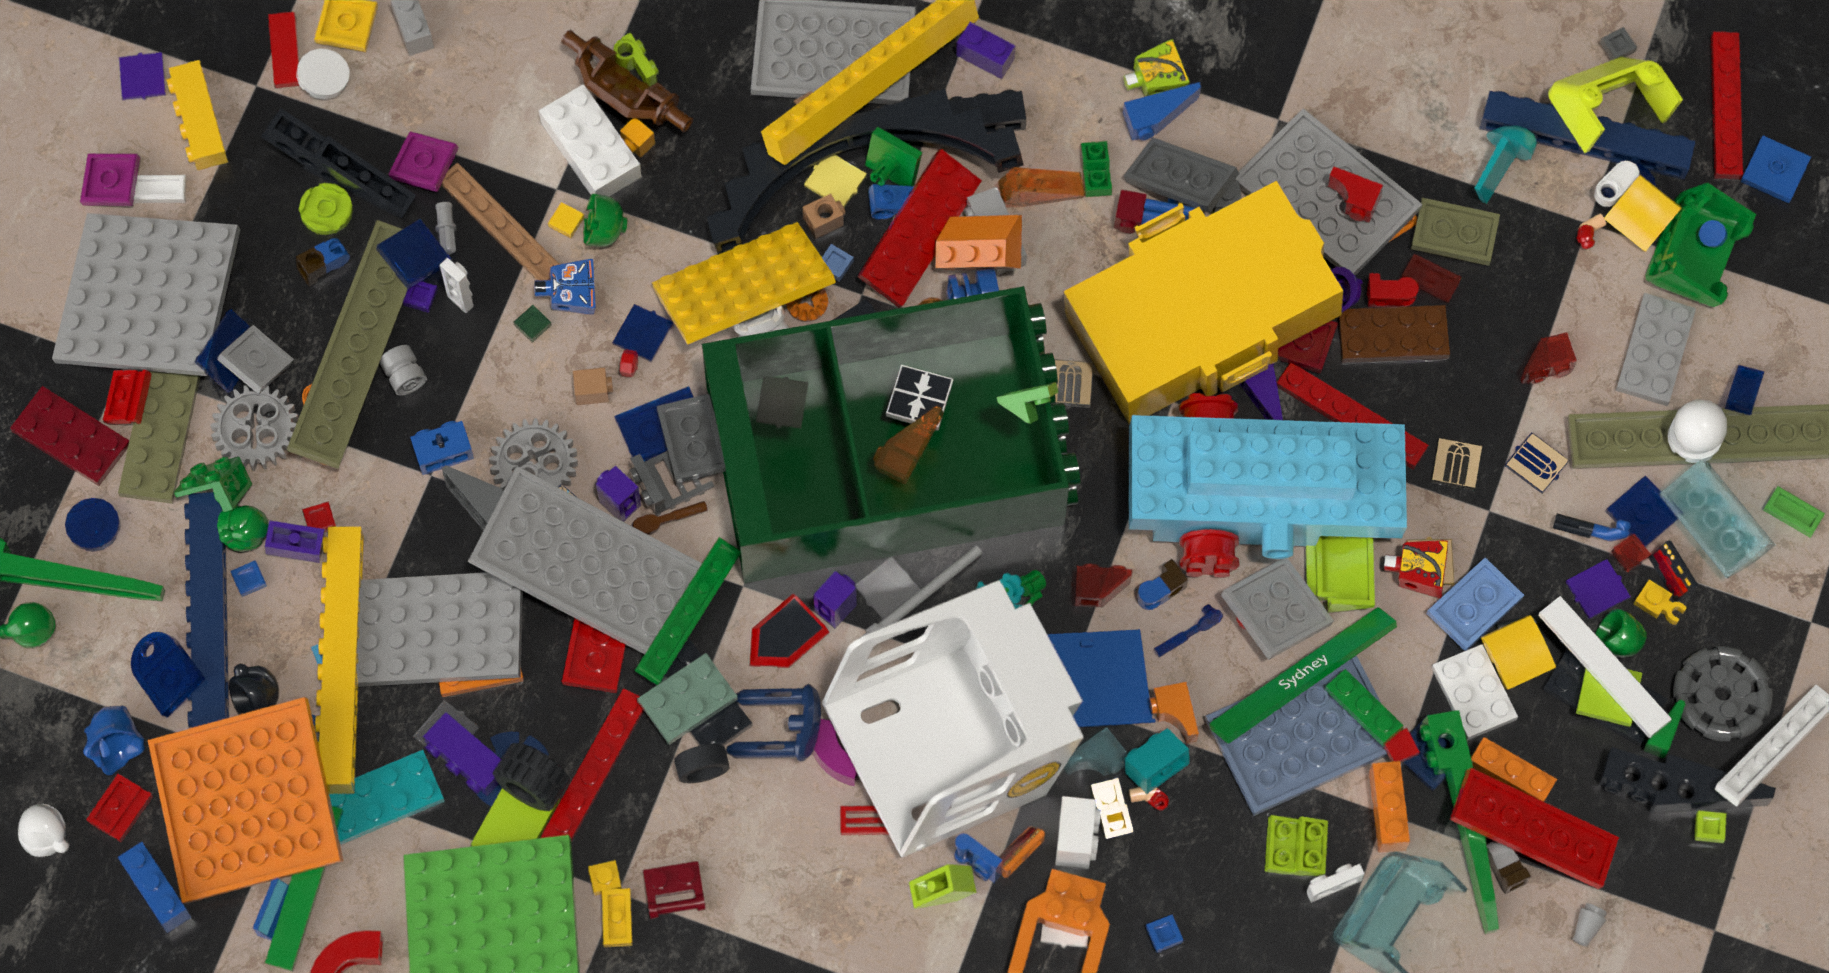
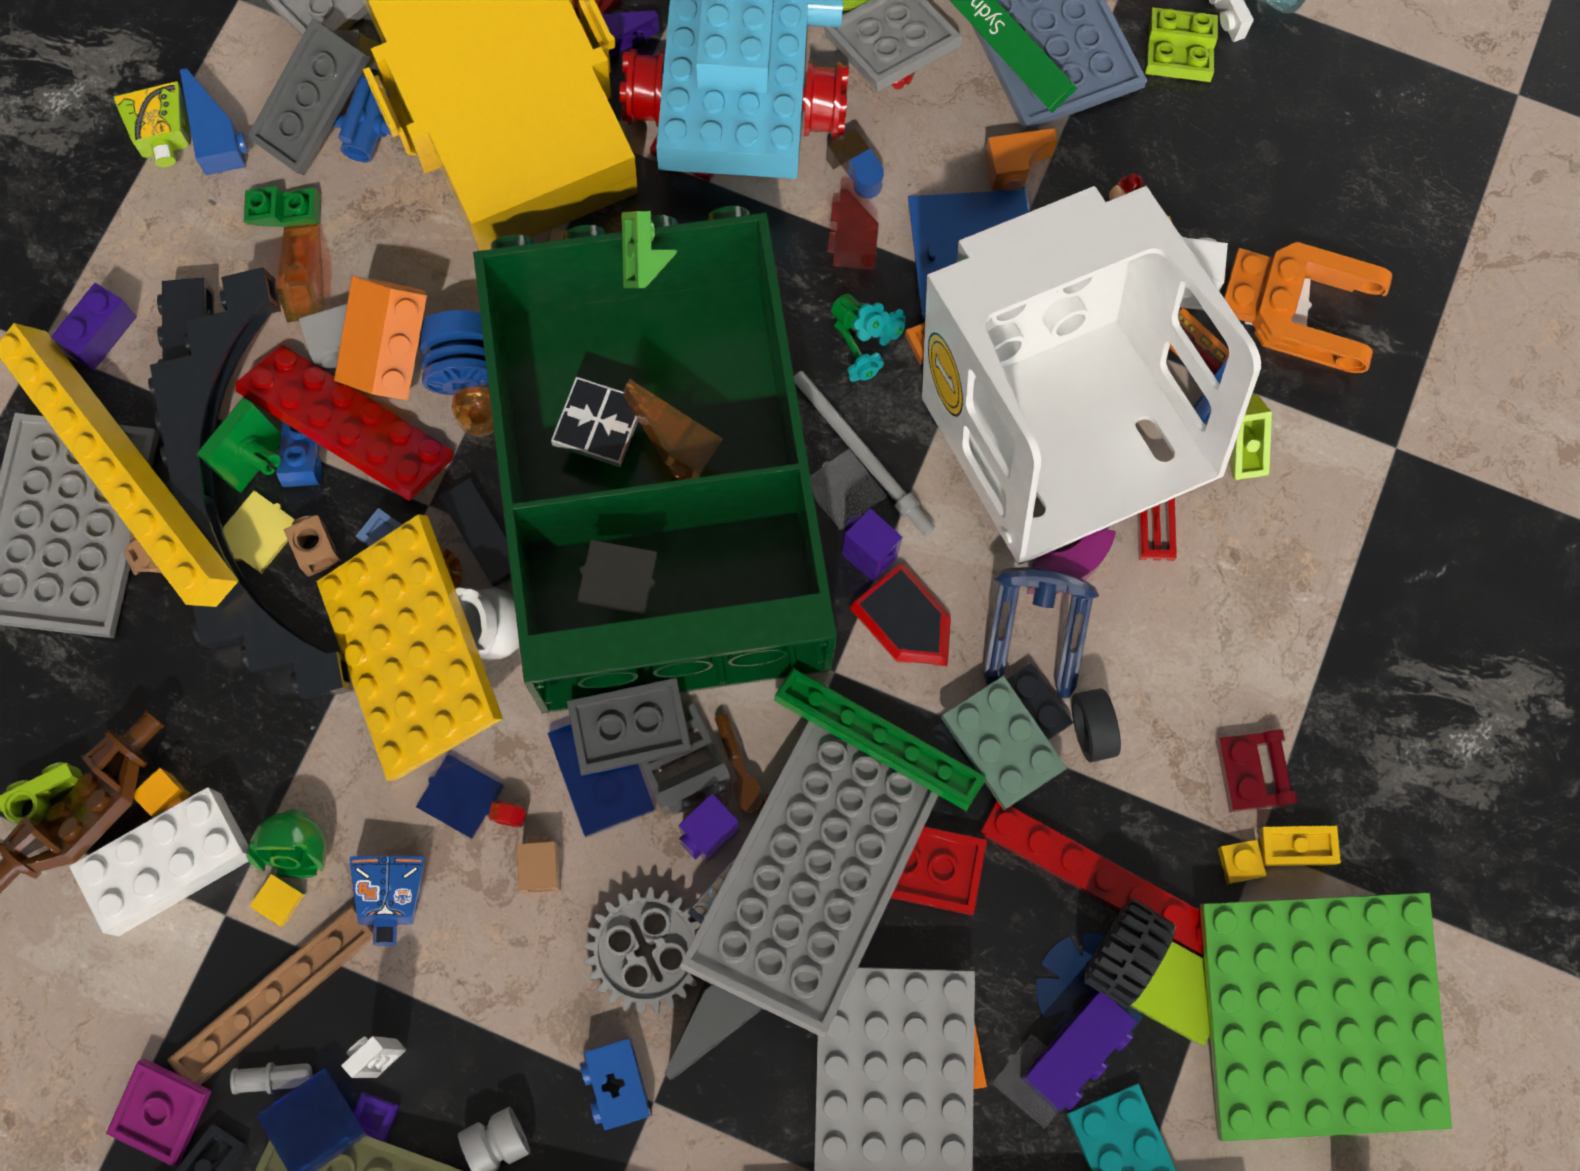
camera: 90 degrees left, 5 degrees up
(532, 323) = (433, 951): clear green tile -> none
(1129, 211) = (348, 167): dark red brick -> none
(1156, 760) = (1079, 169): teal brick -> none
(1164, 933) = (1295, 189): blue plate -> none
(1210, 619) = (894, 115): clear blue piece -> none

